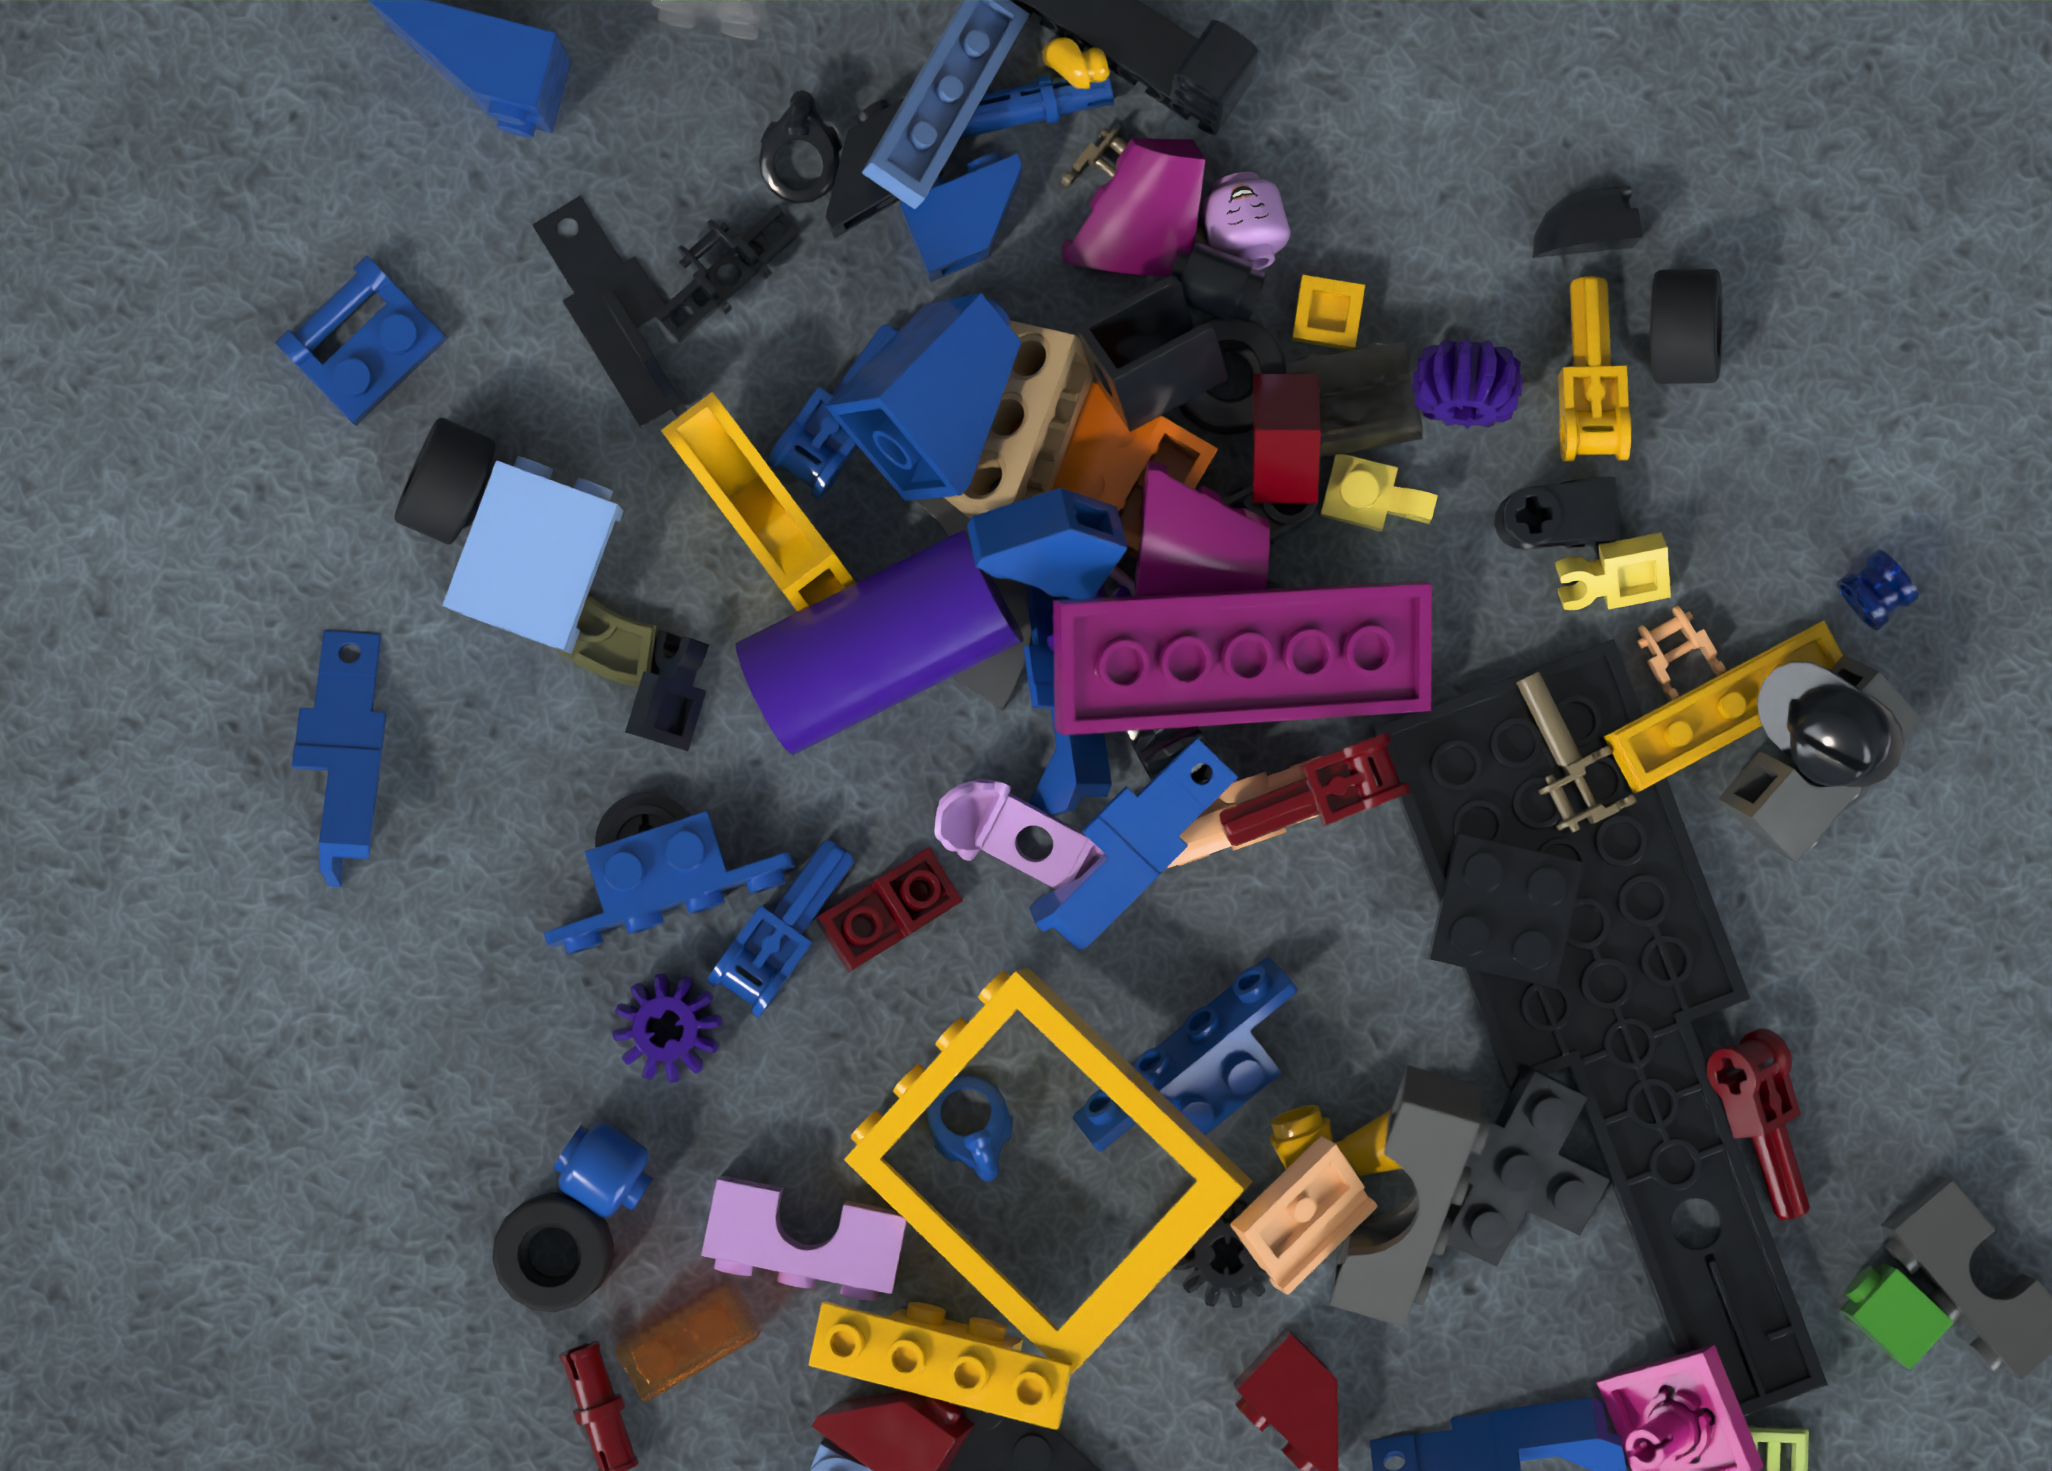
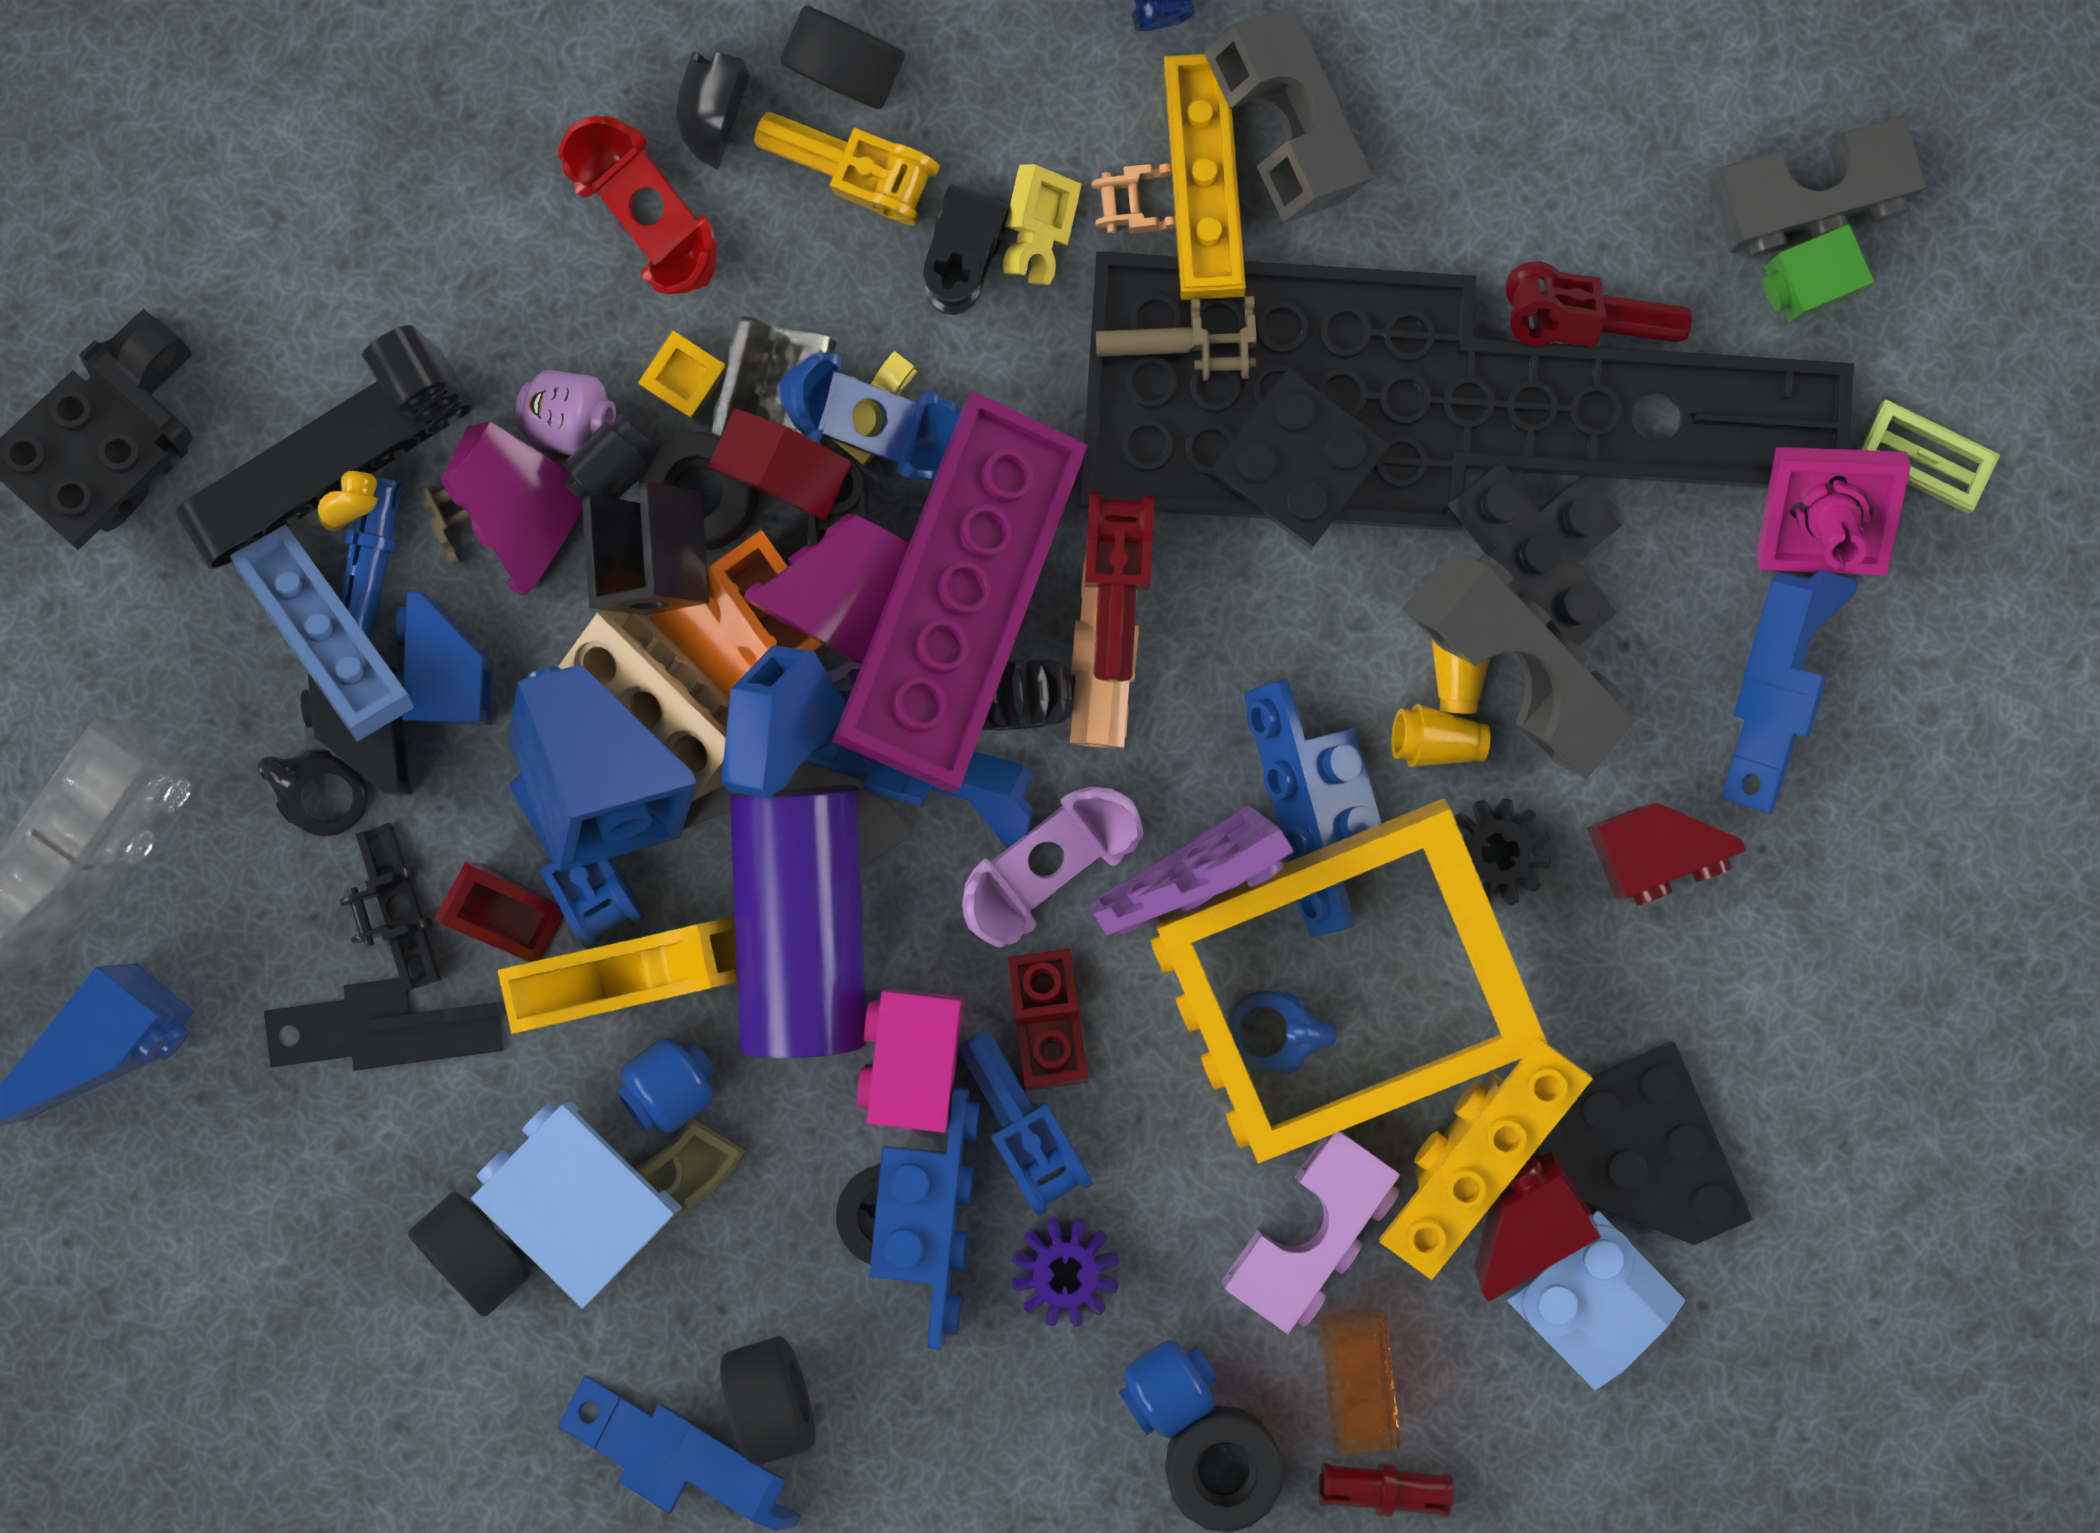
camera: 65 degrees left, 0 degrees up
(376, 355) = (324, 1263): blue plate -> none
(432, 809) = (767, 1401): none -> black tyre
(668, 702) = (766, 1138): black plate -> none
(675, 590) = (666, 1085): none -> blue head
(764, 369) = (500, 912): none -> dark red slope
(799, 802) = (913, 1059): none -> dark pink brick
(1113, 1006) = (1219, 859): none -> medium lavender plate
(1138, 845) = (1090, 764): blue piece -> none
(1304, 1215) = (1495, 765): light nougat plate -> none
(1367, 545) = (822, 404): none -> blue piece
(1467, 383) = (804, 277): dark purple gear -> none
(1495, 158) = (611, 160): none -> red piece
(1829, 726) = (1263, 90): black piece -> none

